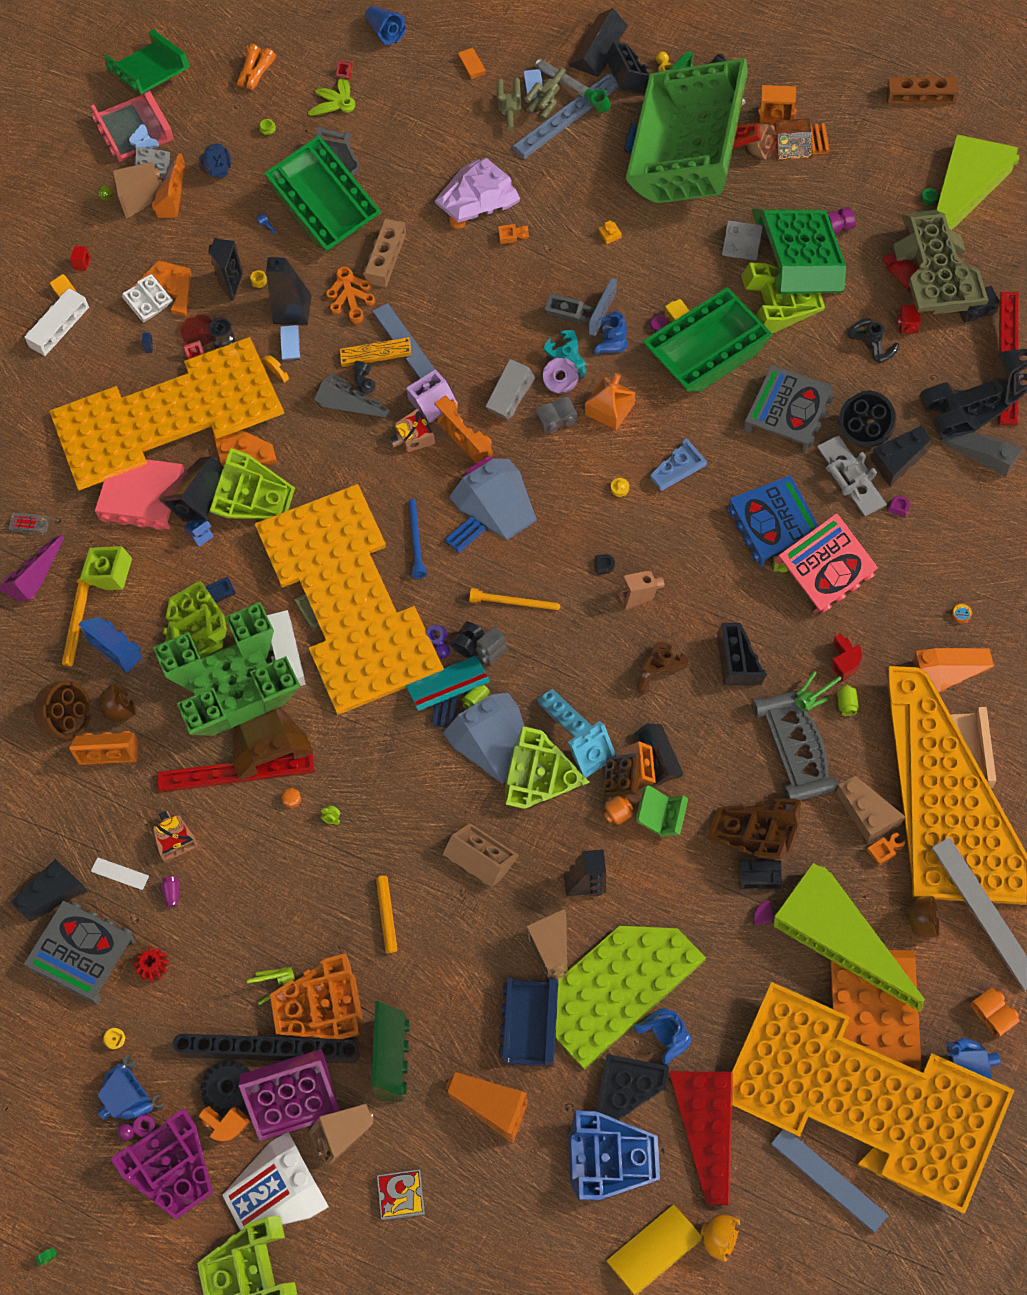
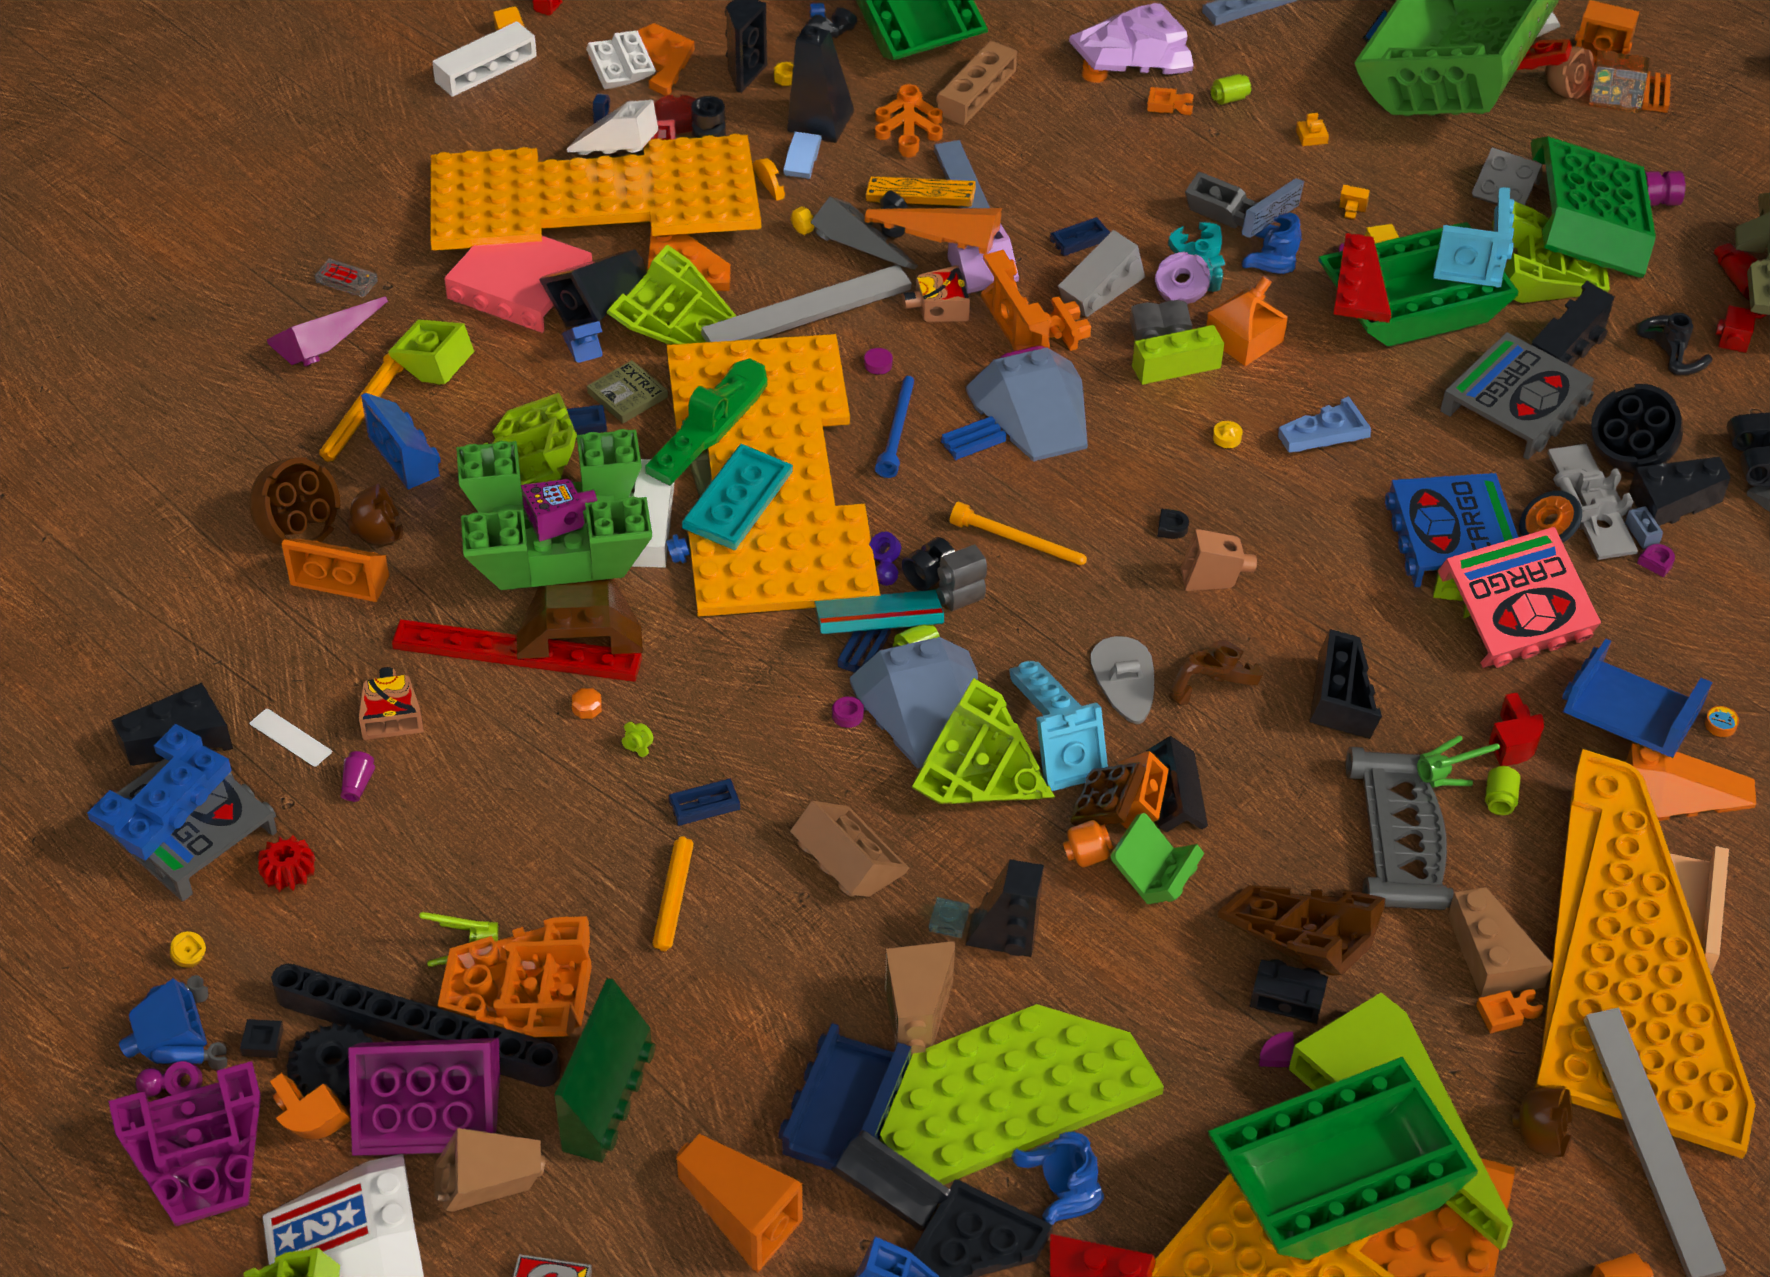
camera: 10 degrees right, 15 degrees down
(67, 946) = (167, 798): none -> blue bracket
(166, 361) = (624, 128): none -> white slope
(180, 1084) = (261, 1038): none -> black plate
(230, 675) = (554, 507): none -> magenta torso
(239, 561) = (627, 391): none -> olive tile
(270, 234) = (842, 20): none -> black arm
(301, 574) = (709, 419): none -> green piece
(307, 397) = (801, 220): none -> yellow tile
(310, 672) = (678, 549): none -> blue plate
(332, 465) = (810, 306): none -> light grey tile
(336, 626) = (737, 496): none -> teal tile
(374, 860) = (706, 805): none -> dark blue tile
(388, 492) = (878, 361): none -> magenta tile
(414, 381) = (952, 225): none -> orange wedge
(449, 757) = (847, 712): none -> magenta tile
(488, 360) = (1079, 237): none -> dark blue tile
(495, 433) = (1064, 325): none -> orange hips
(549, 213) = (1230, 88): none -> lime brick
(551, 881) = (949, 917): none -> clear light blue plate
(571, 1069) = (890, 1179): none -> black panel
(574, 437) = (1177, 354): none -> lime brick
(606, 682) = (1125, 676): none -> light grey shield
(650, 283) = (1353, 200): none -> light orange tile
(674, 356) = (1361, 282): none -> red wing
(742, 319) = (1478, 254): none -> medium azure bracket
(814, 347) = (1578, 327): none -> black wedge
(820, 494) = (1553, 502): none -> orange wheel
(823, 990) = (1344, 1160): none -> green slope
(886, 486) = (1643, 527): none -> sand blue piece
(910, 621) = (1632, 704): none -> blue panel

